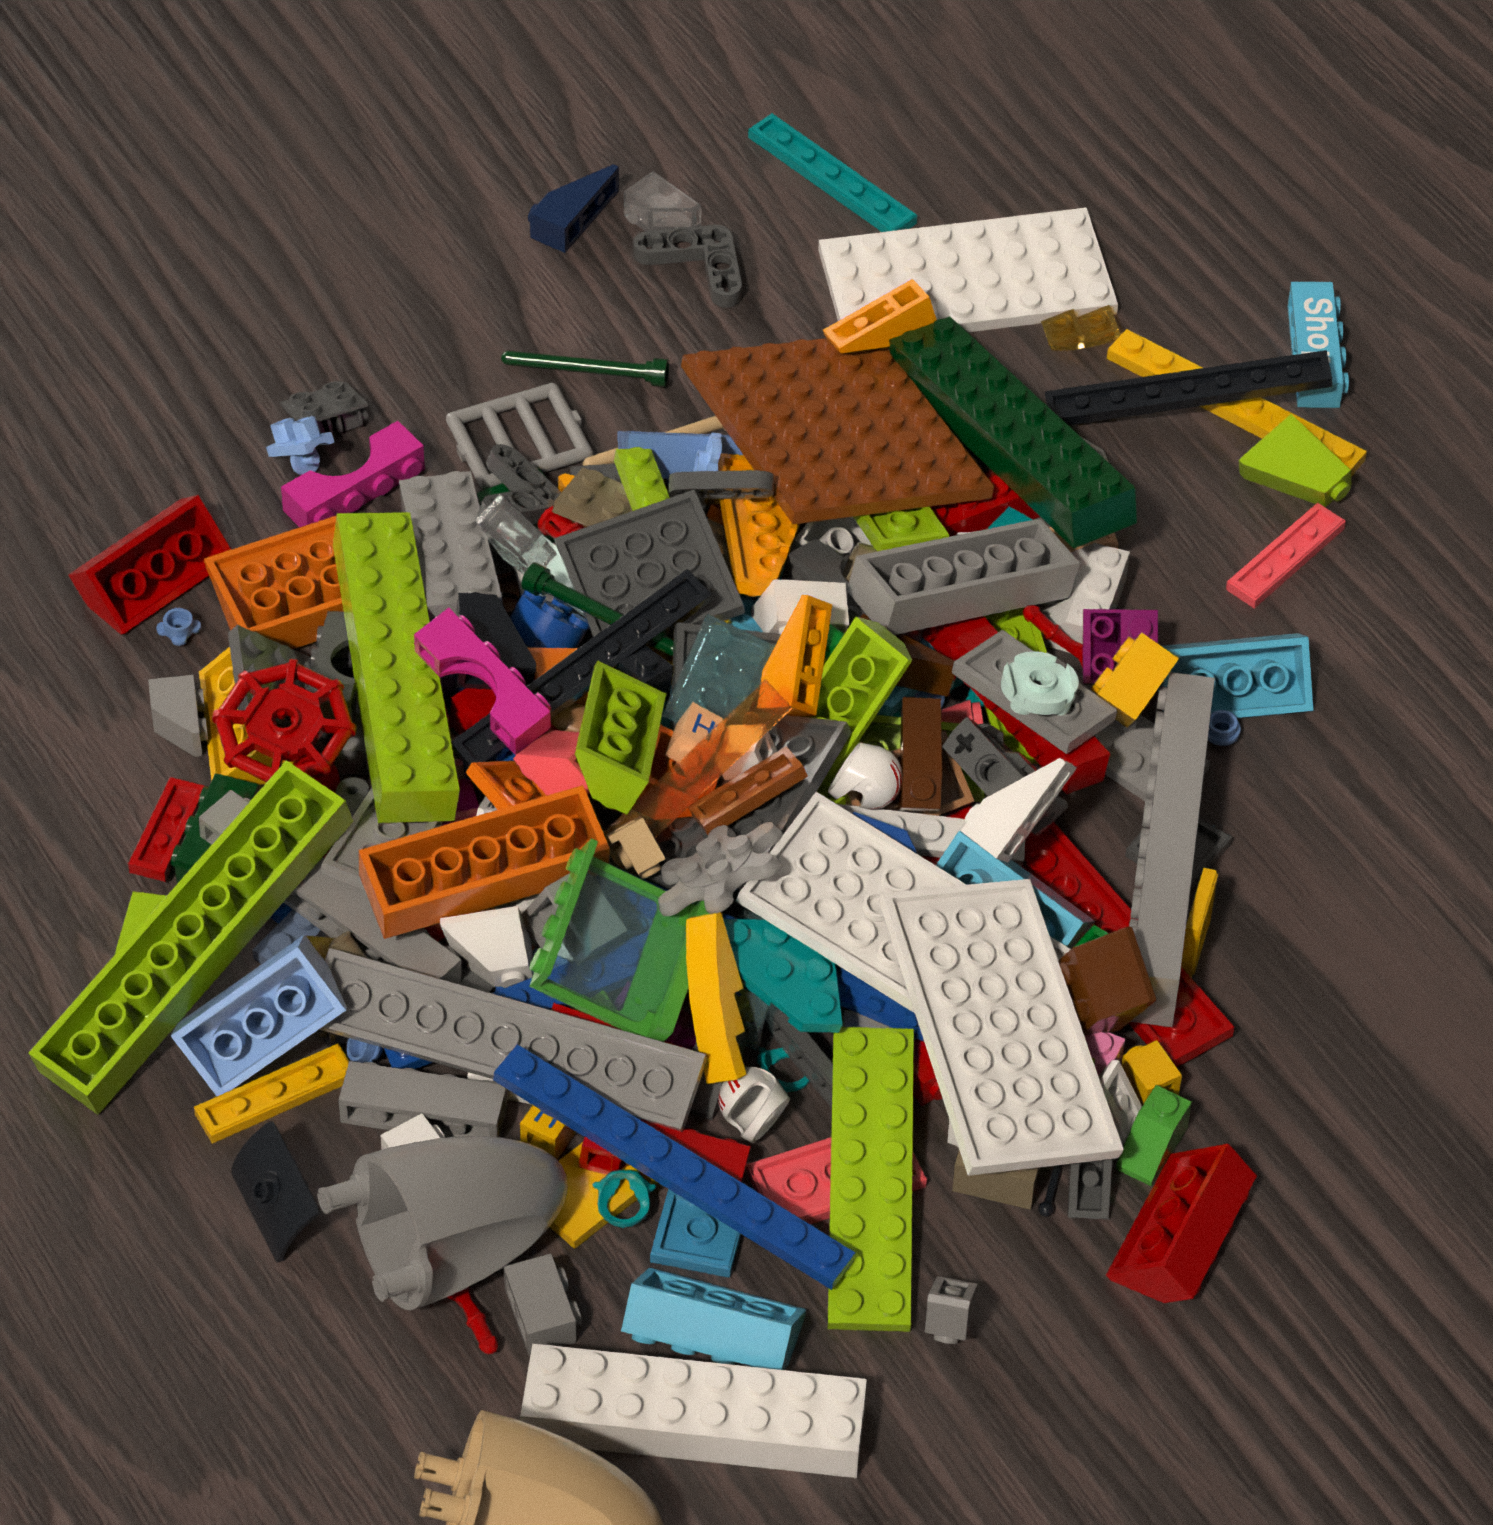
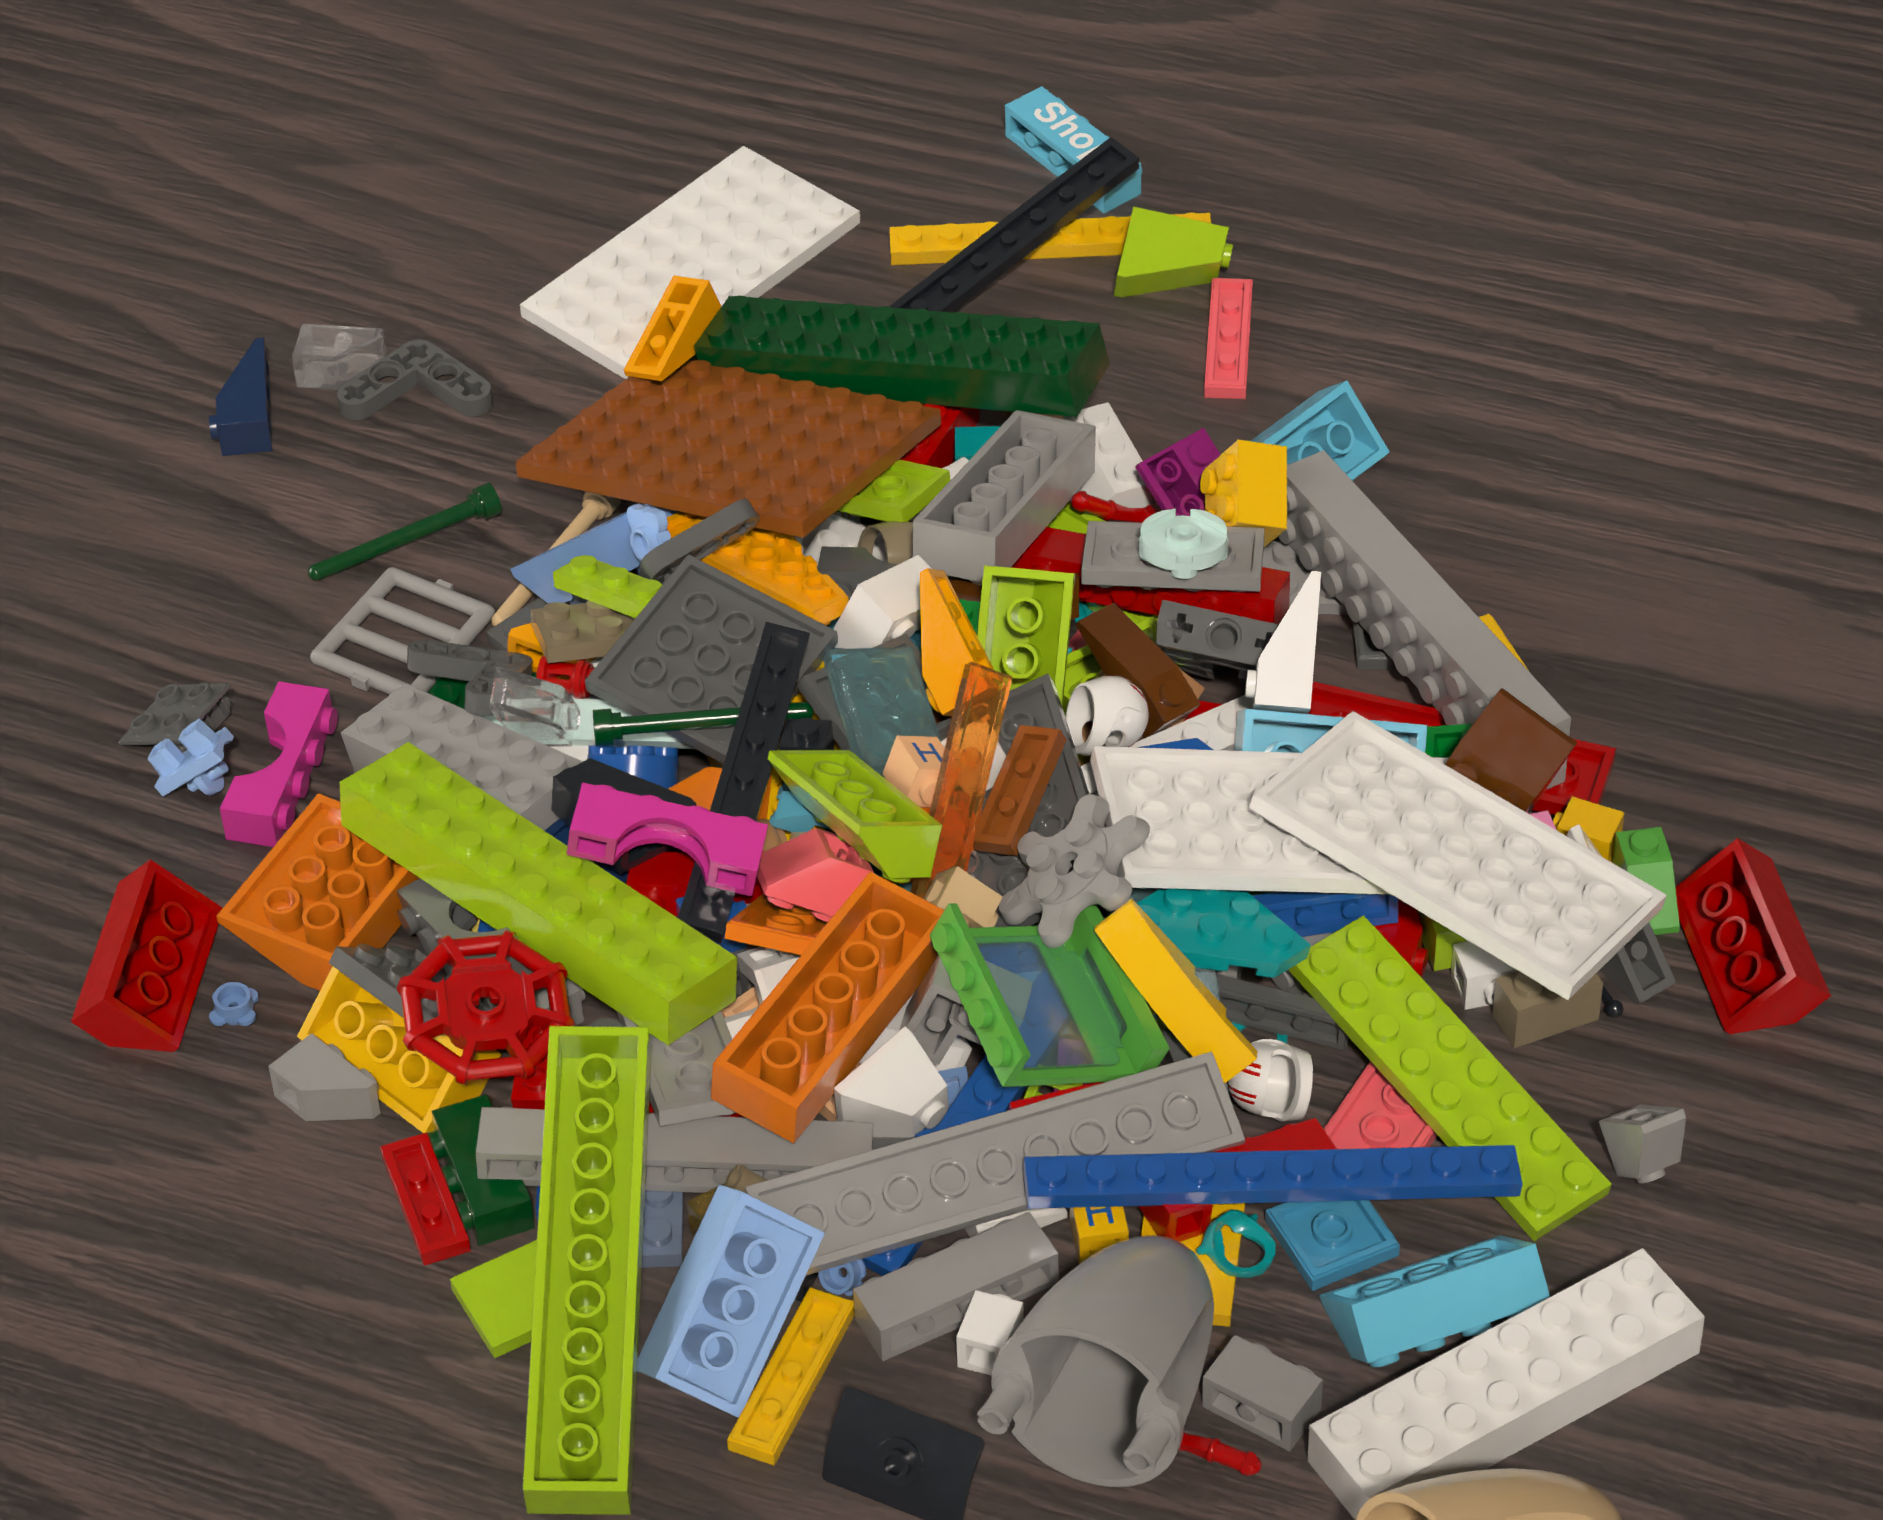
camera: 35 degrees left, 5 degrees down
(831, 175) = (468, 244): teal tile -> none
(1088, 330) = (848, 252): clear yellow slope -> none

